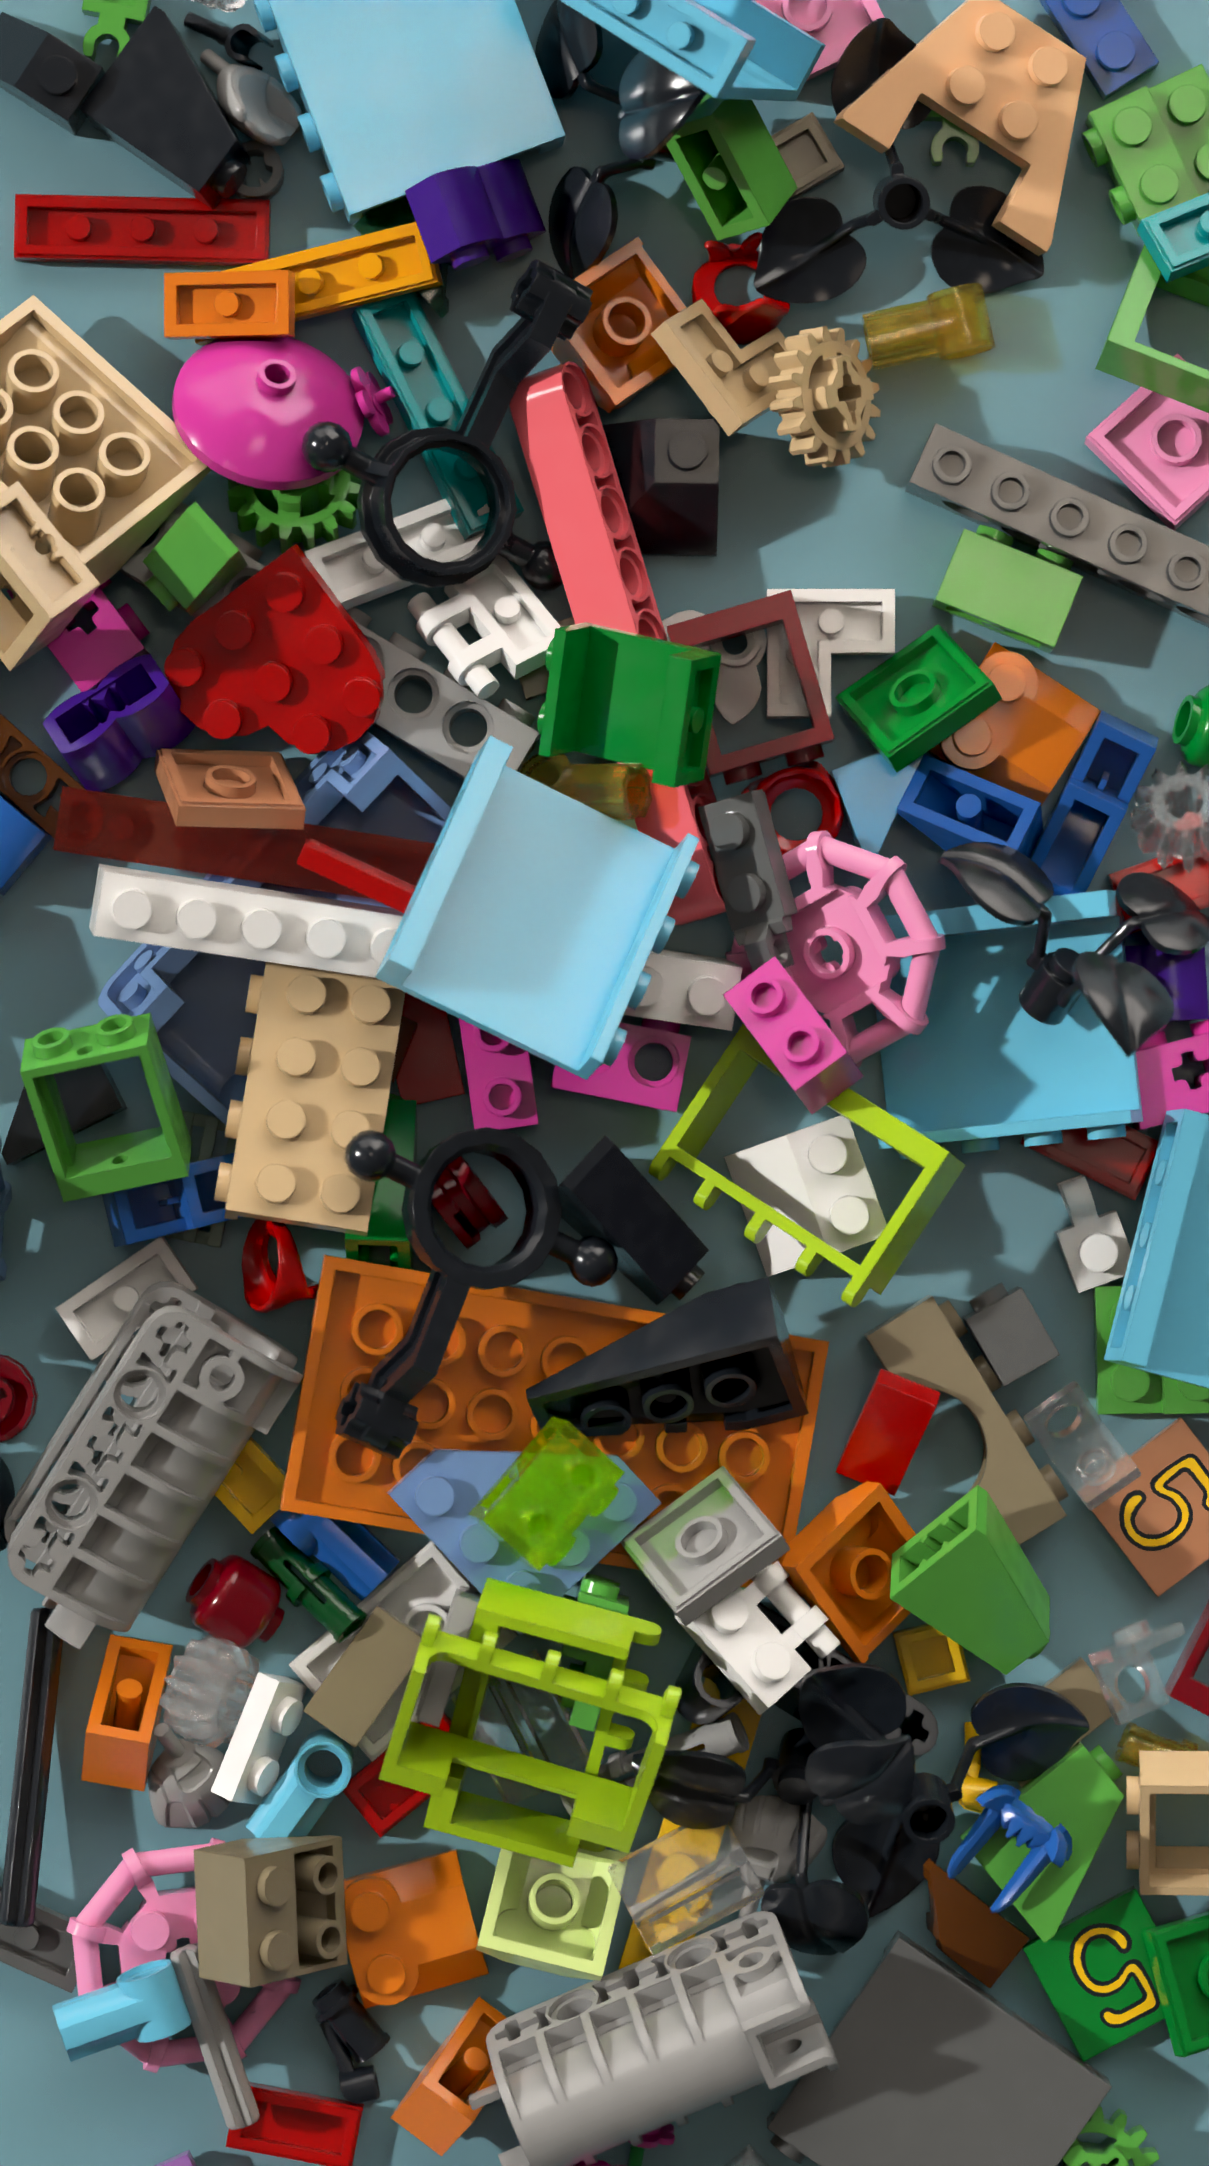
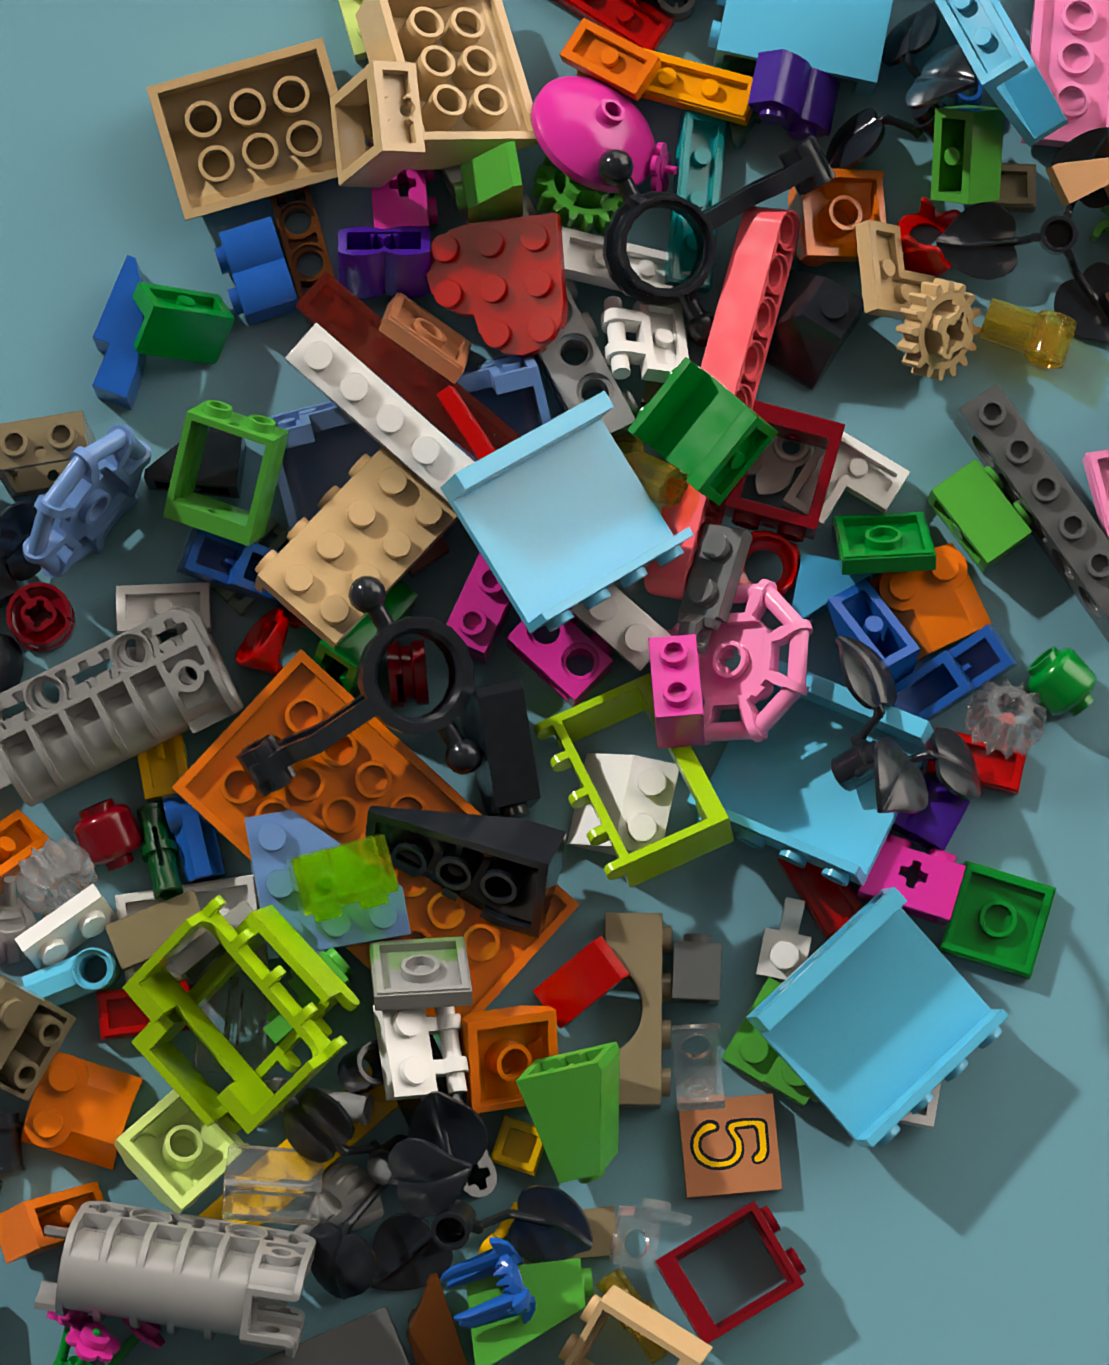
camera: 30 degrees right, 10 degrees down
(431, 1062) = (443, 580): red tile -> none

